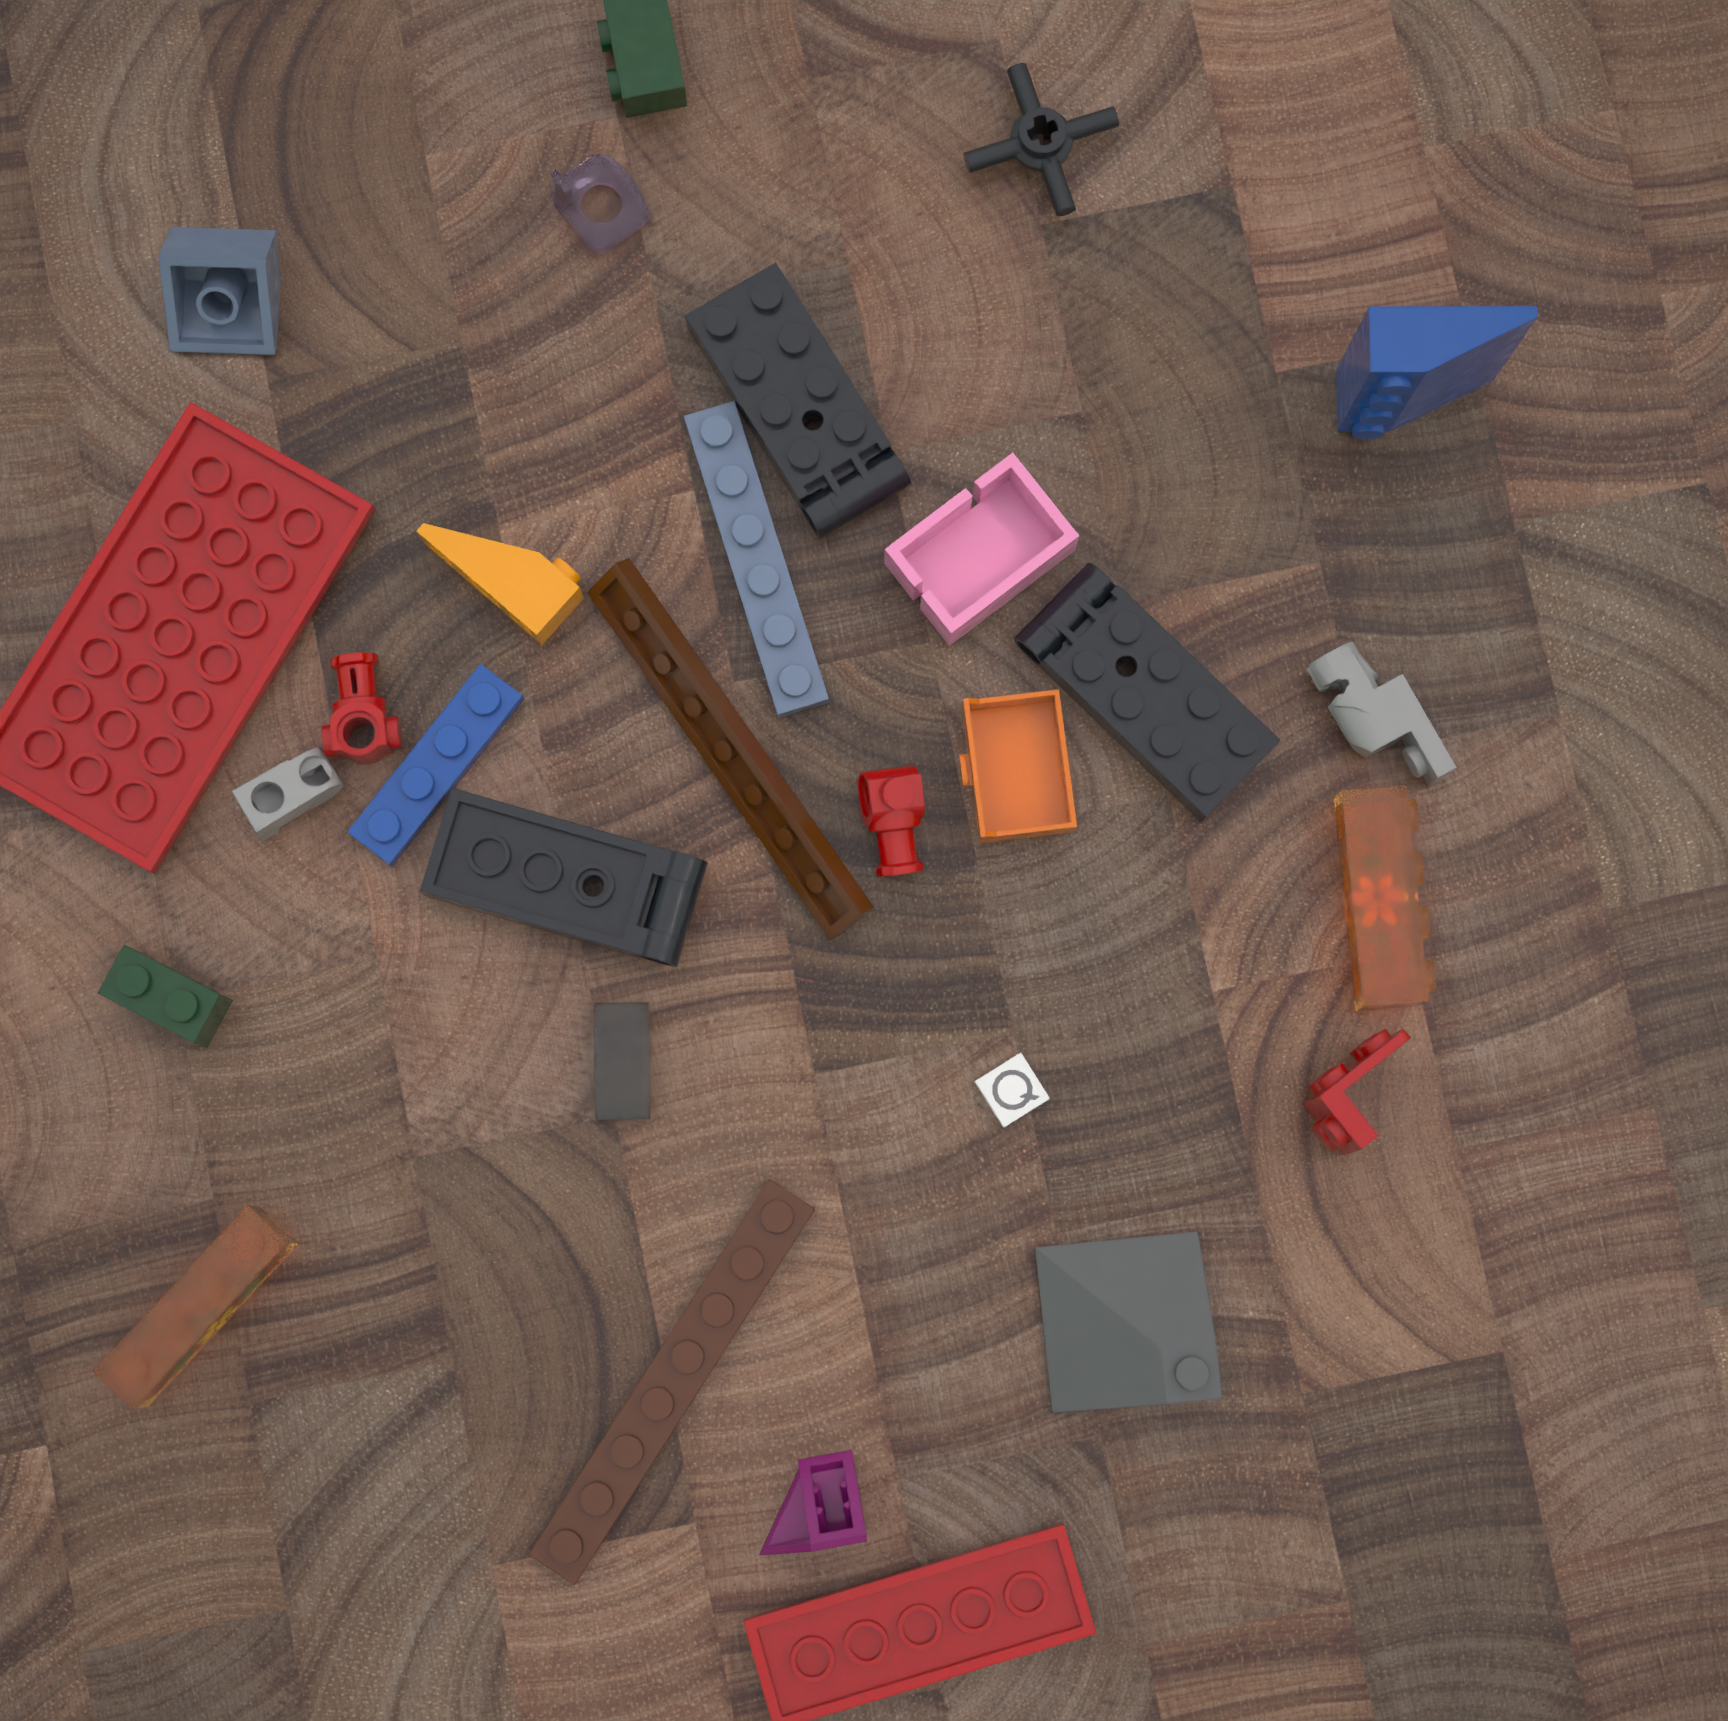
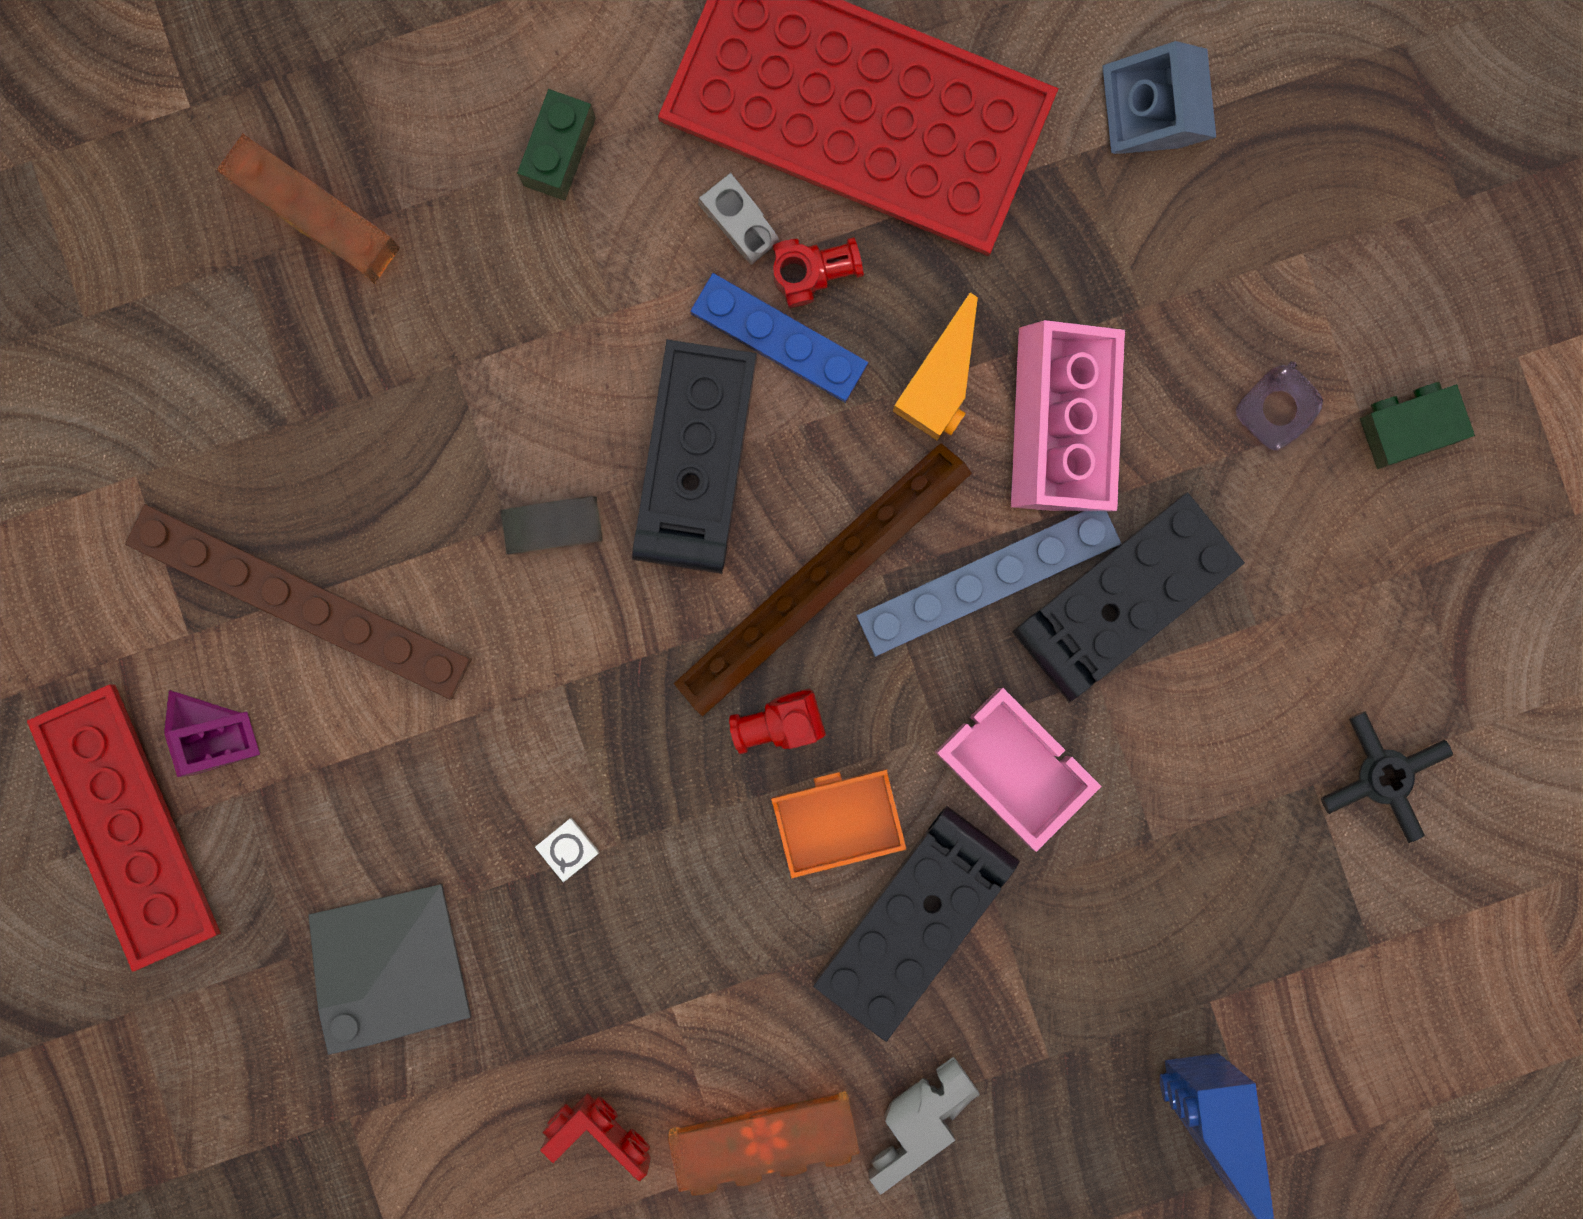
camera: 85 degrees right, 5 degrees up
(578, 440) = (1067, 417): none -> bright pink slope

